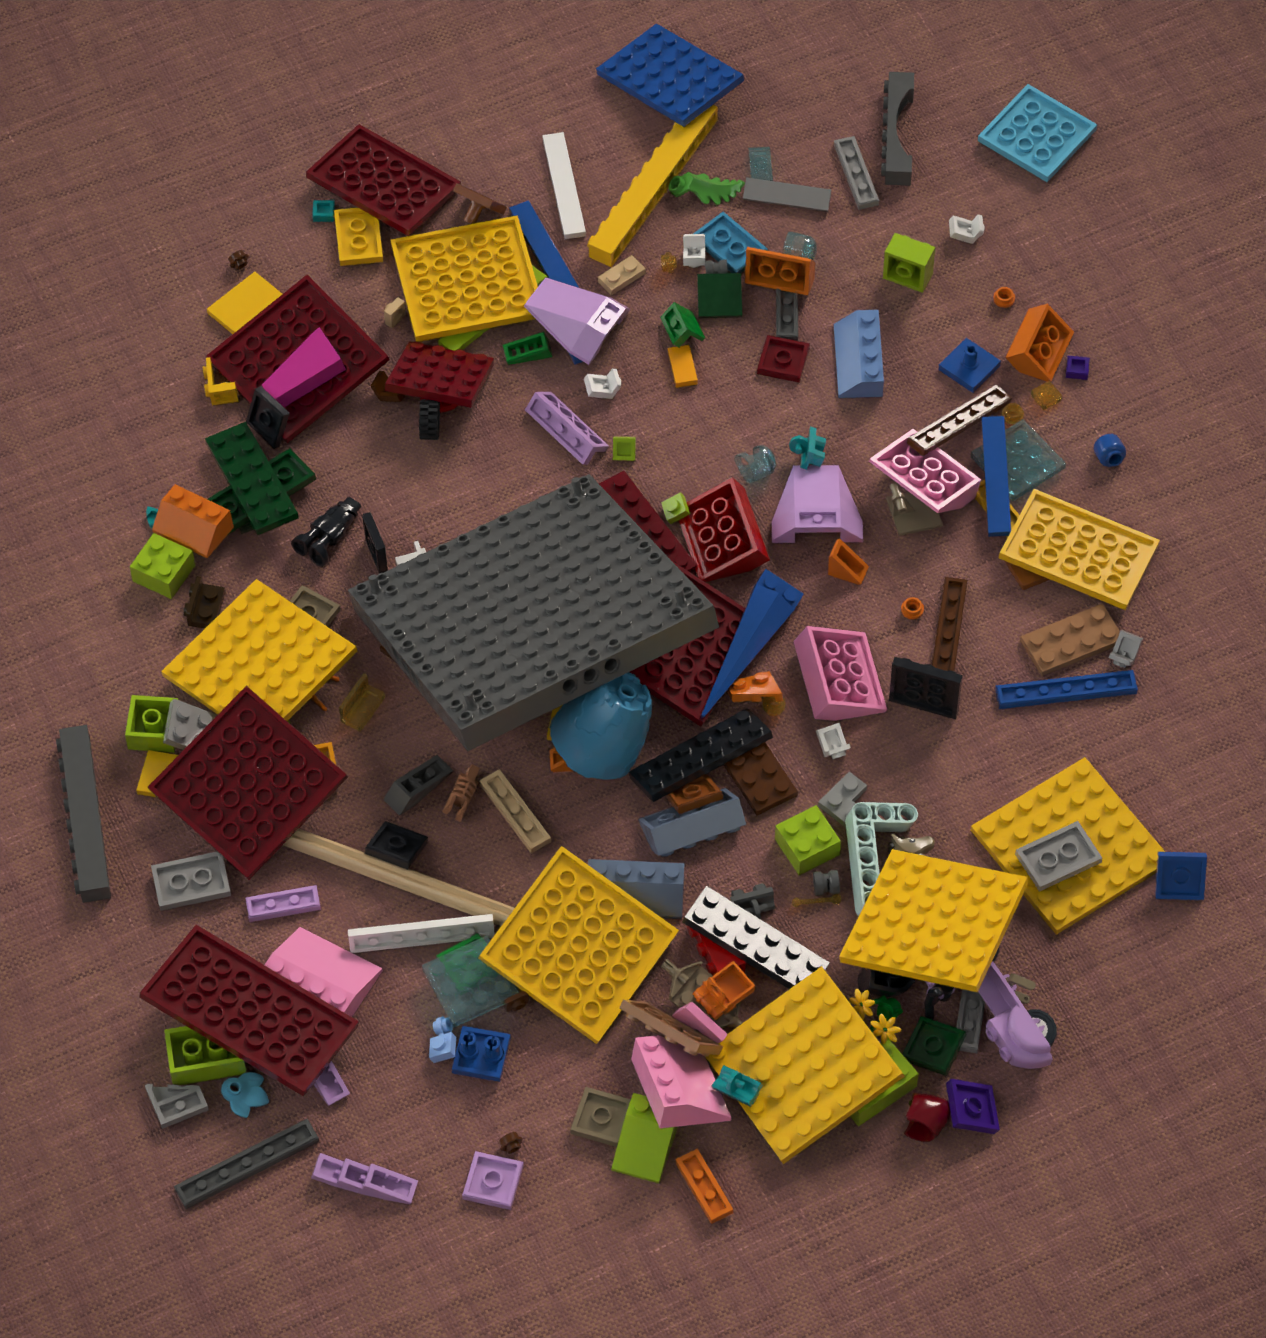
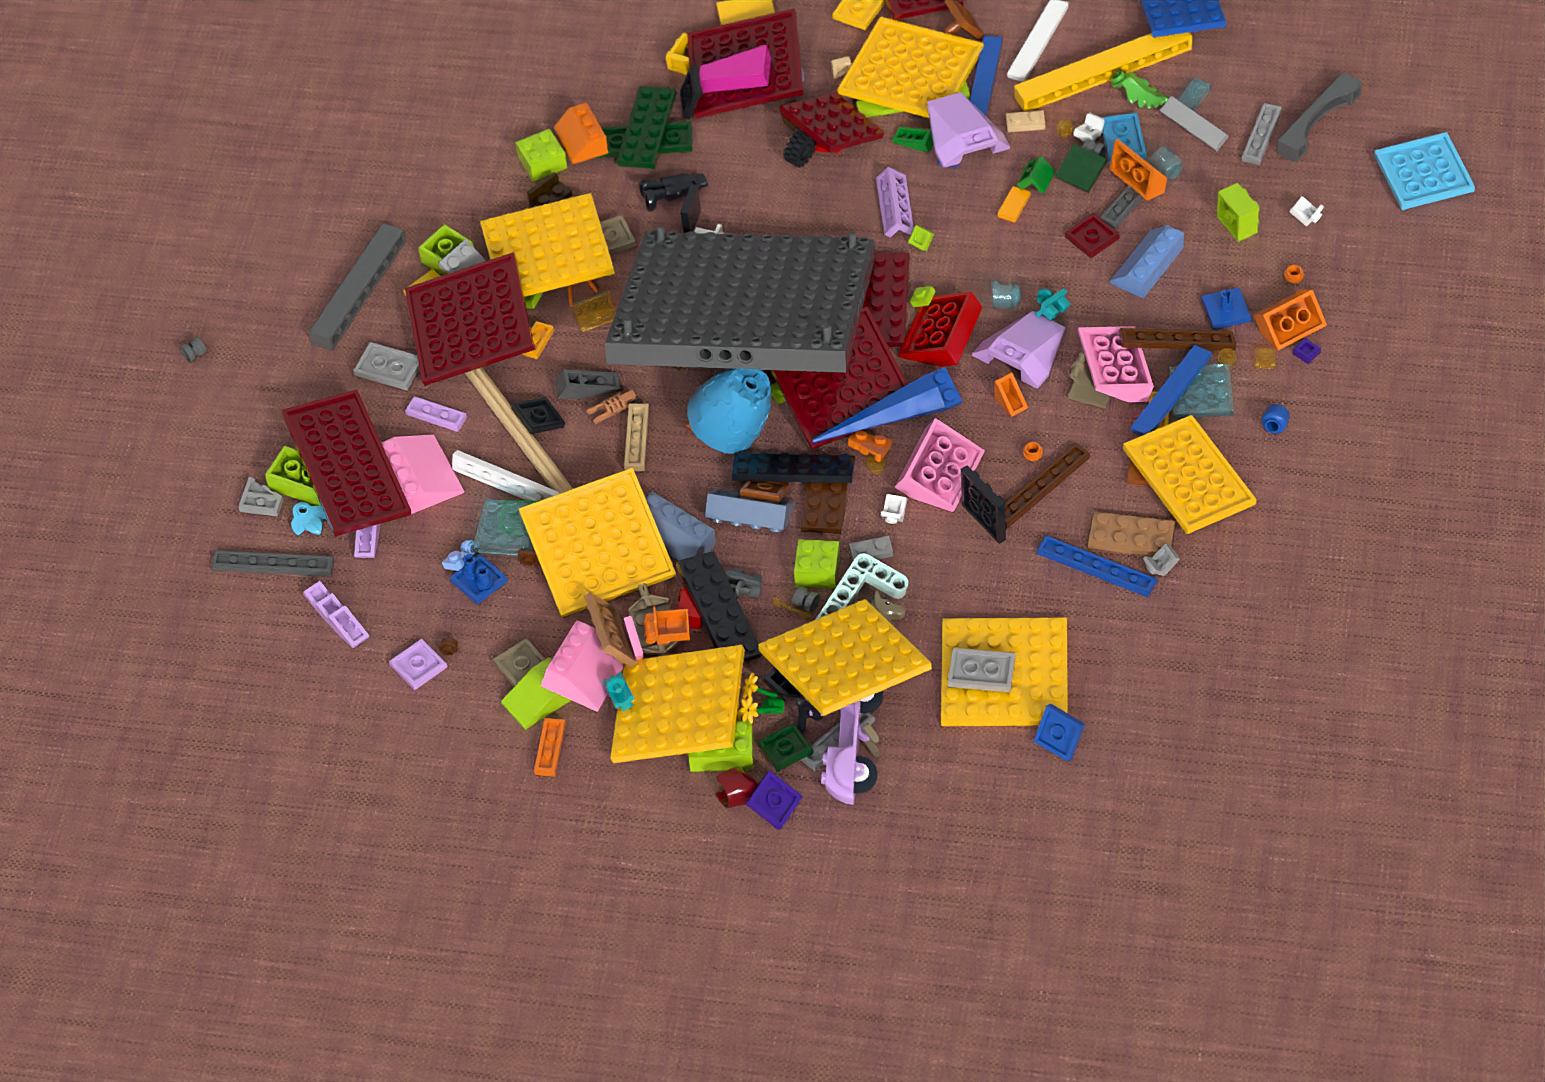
camera: 40 degrees right, 5 degrees down
(603, 386) = (943, 188): white bracket -> none

